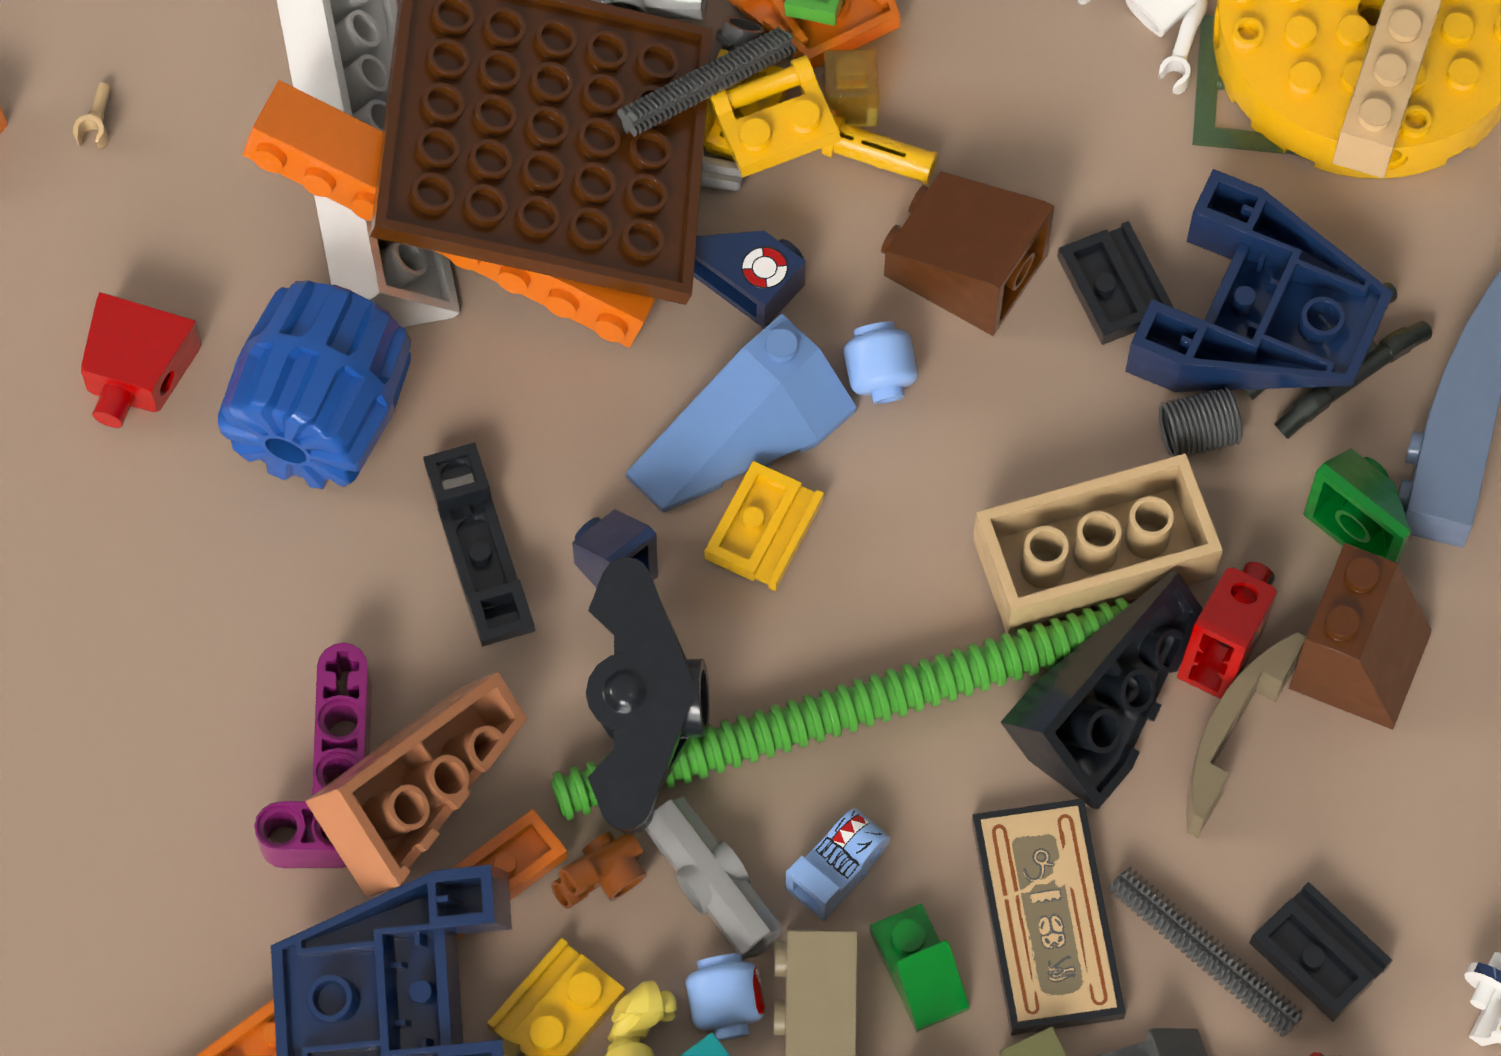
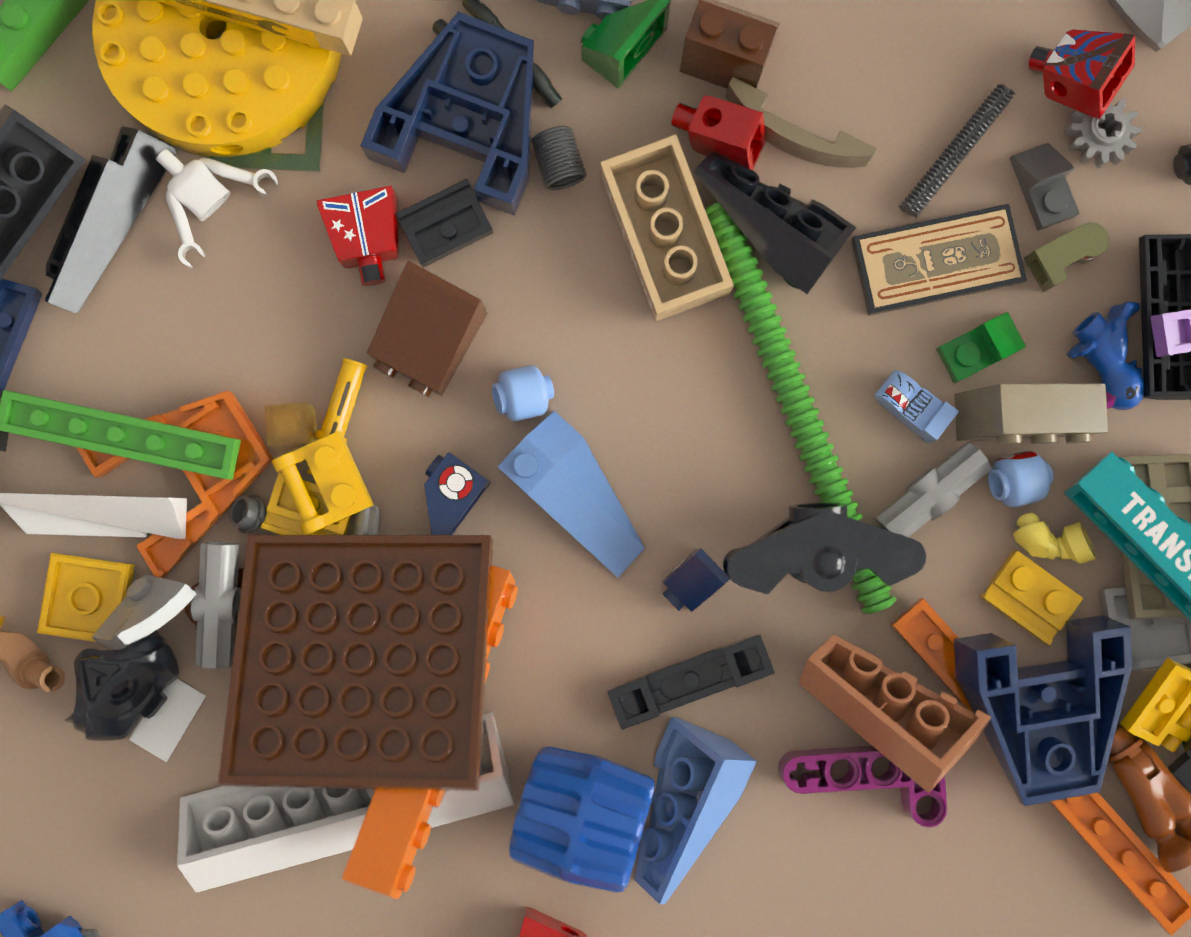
camera: 90 degrees left, 20 degrees up
(329, 549) = (694, 793): none -> medium blue wedge
(607, 864) = (935, 575): dark orange plate -> none
(706, 81) = (301, 536): dark grey axle -> none
(763, 526) = (658, 472): yellow plate -> none
(1106, 183) = (363, 230): none -> red torso
(1320, 951) = (954, 71): black plate -> none

